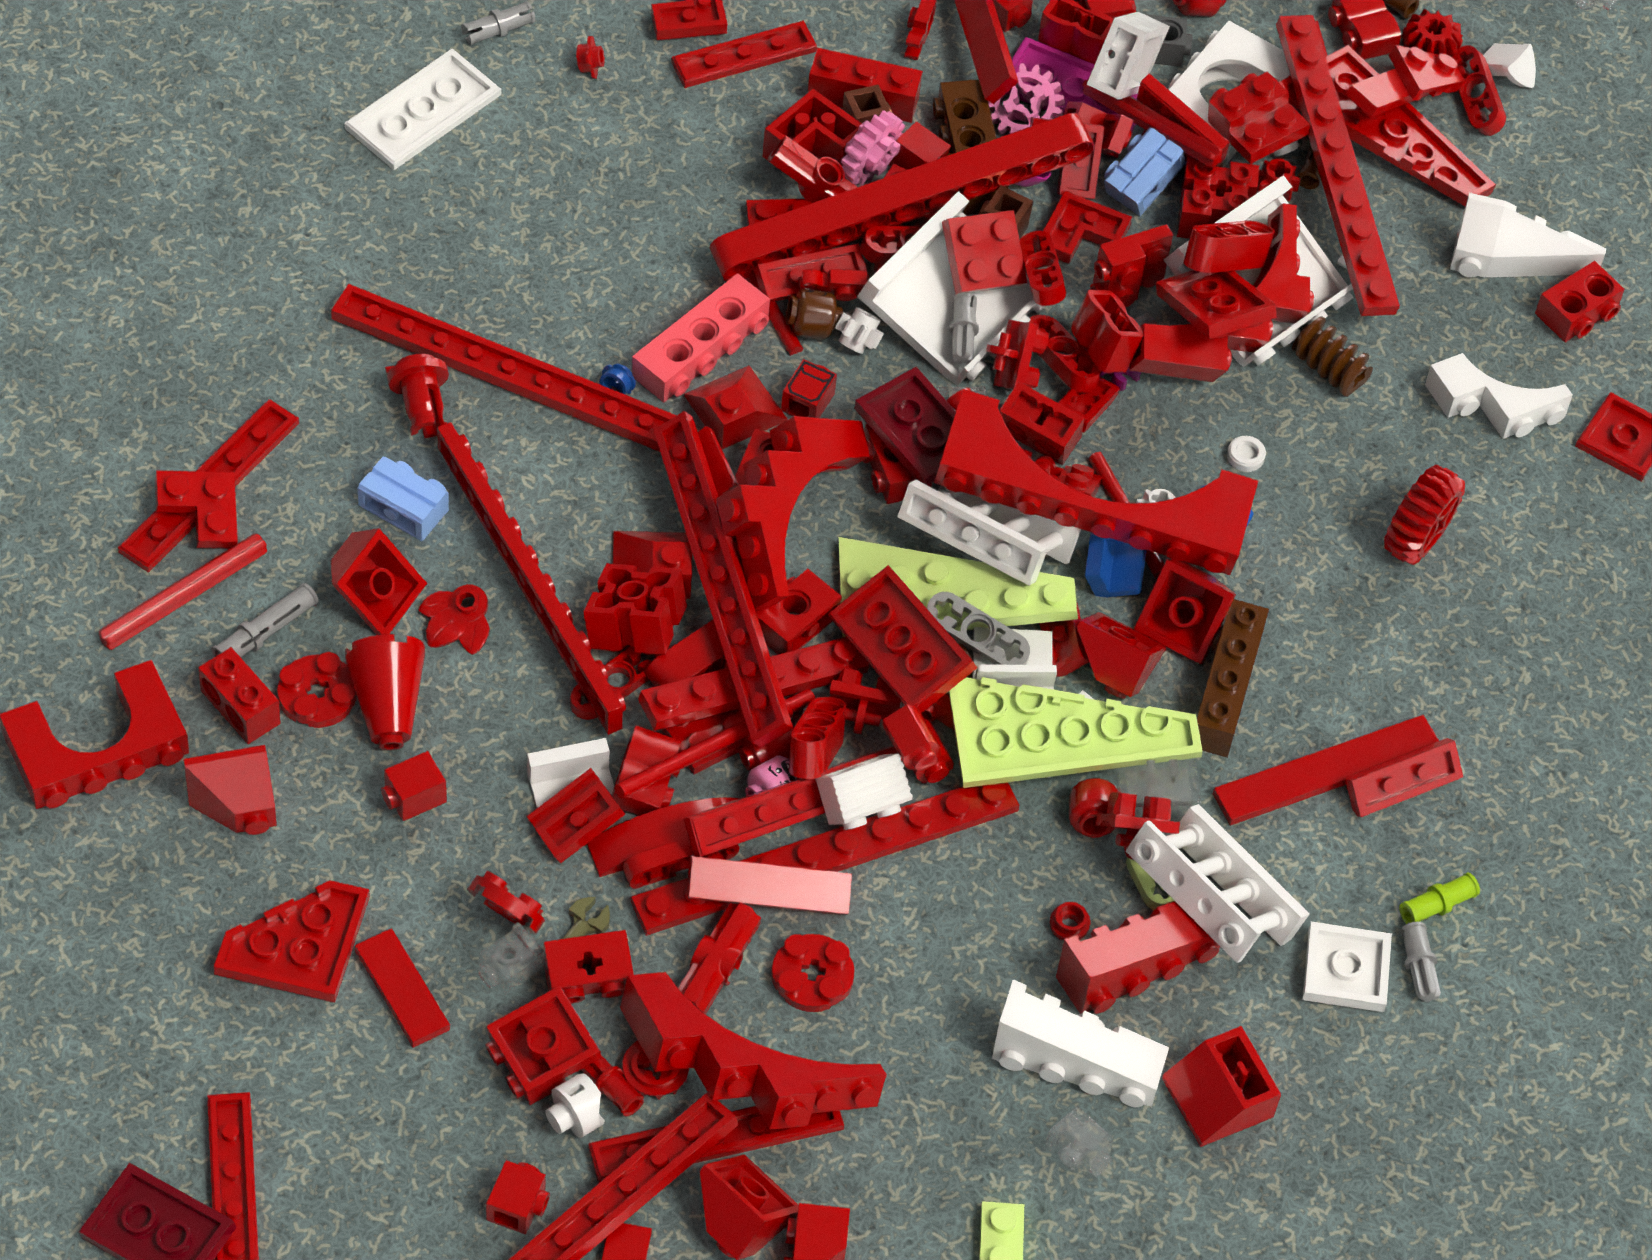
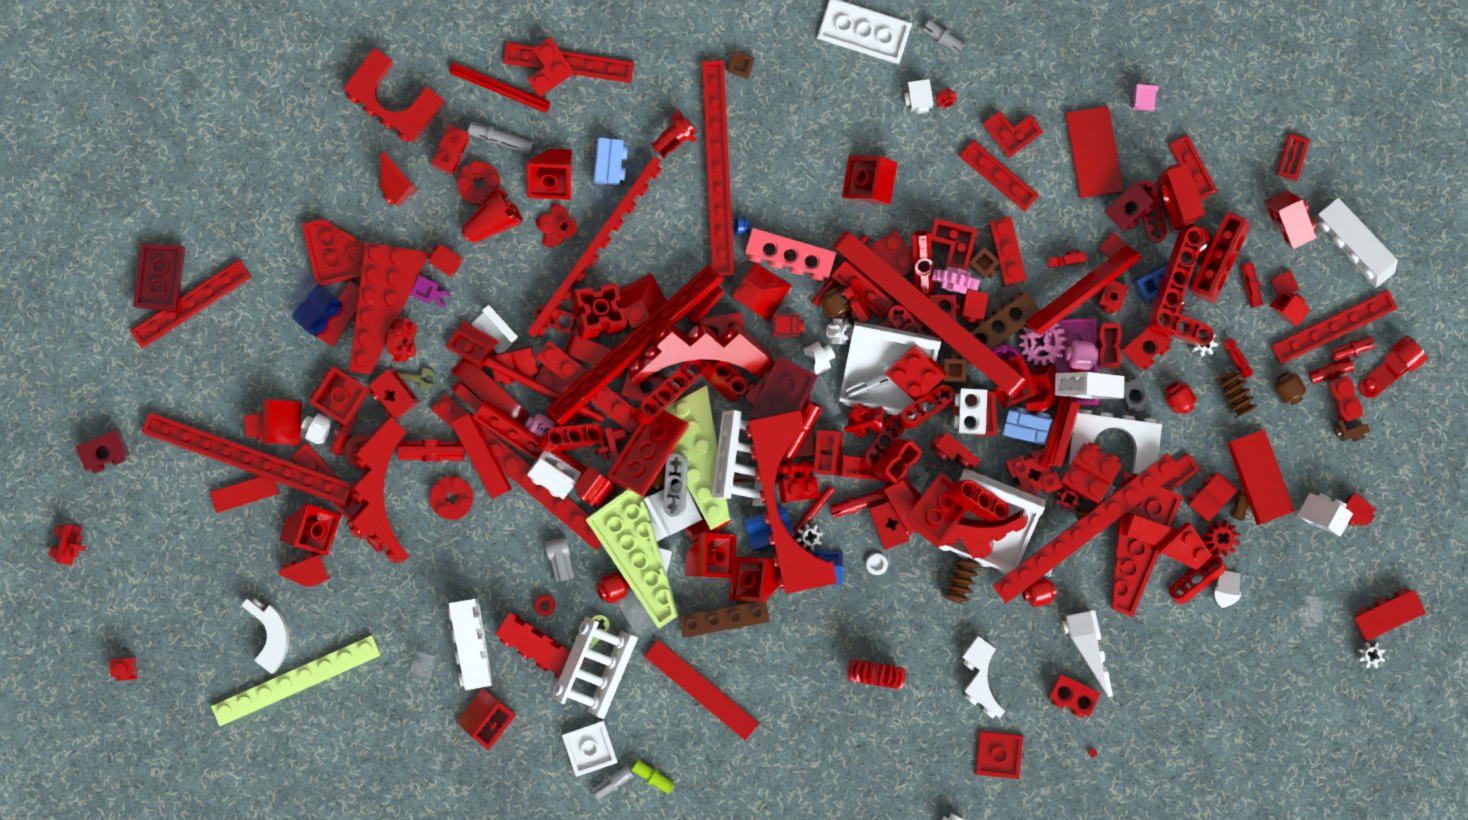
camera: 70 degrees right, 30 degrees up
(370, 270) = (741, 65): none -> reddish brown plate
(376, 1009) = (317, 310): none -> clear blue brick
(408, 892) = (383, 290): none -> red wing
(446, 843) = (427, 290): none -> magenta plate
(533, 1153) = (281, 422): none -> red tile
(566, 83) = (919, 96): none -> white brick
(649, 195) = (870, 179): none -> red slope
(816, 546) = (684, 379): none -> red beam
(880, 367) = (820, 355): none -> white piece
(996, 858) = (560, 558): none -> light grey piece
(1072, 61) = (1081, 355): none -> bright pink head
(1081, 218) = (977, 412): none -> white brick
(1122, 815) = (603, 612): red hips -> none
(1138, 436) = (858, 503): none -> red pin
(1195, 405) = (888, 537): none -> red brick
(1404, 777) = (714, 730): plate -> none
(1406, 271) = (1040, 592): none -> red head

